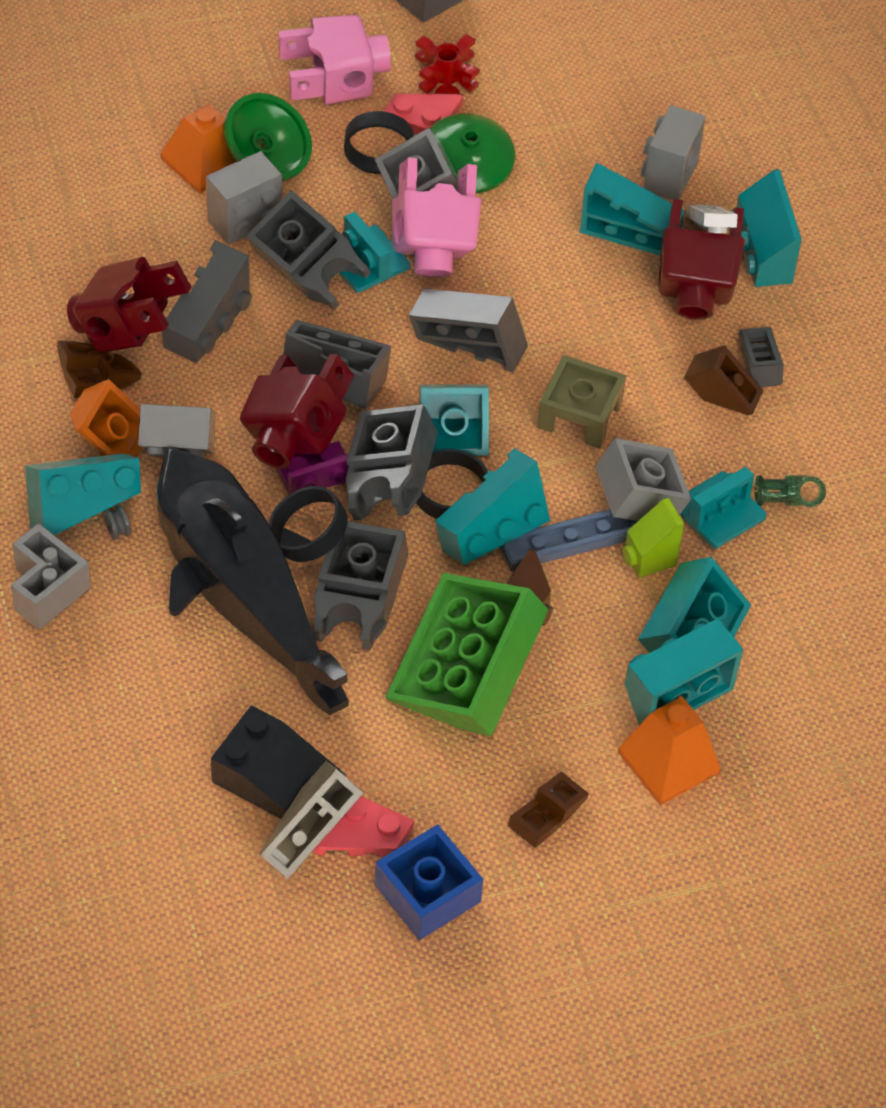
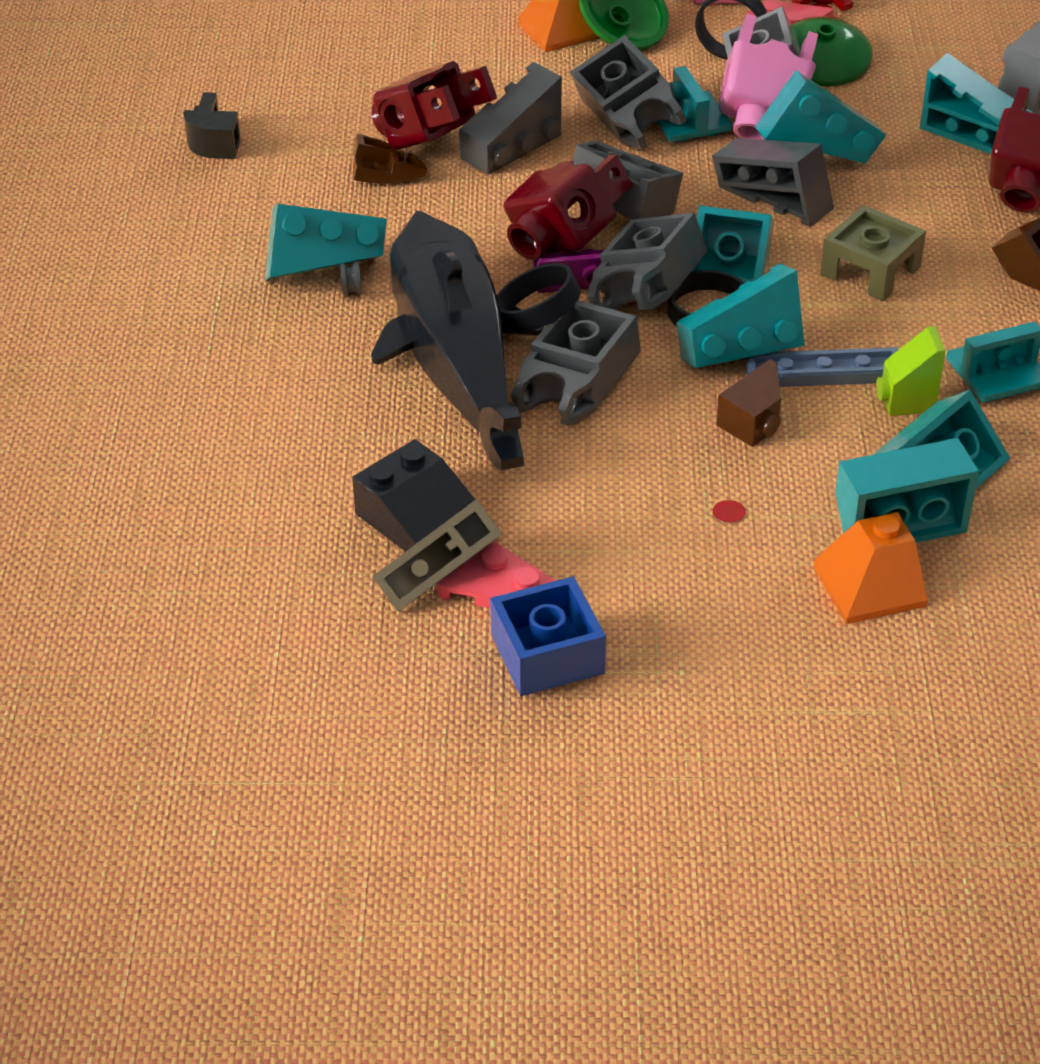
camera: 20 degrees right, 10 degrees down
(50, 576) = (259, 307): light grey brick -> none
(108, 419) = (381, 194): orange slope -> none
(176, 426) = (440, 196): light grey brick -> none
(242, 196) = (576, 37): light grey brick -> none
(468, 652) = (672, 437): bright green slope -> none
(496, 260) = (814, 115): none -> teal wedge
(532, 710) = (729, 511): none -> red sticker
(548, 810) = (717, 601): reddish brown slope -> none
(639, 477) = (907, 307): light grey brick -> none

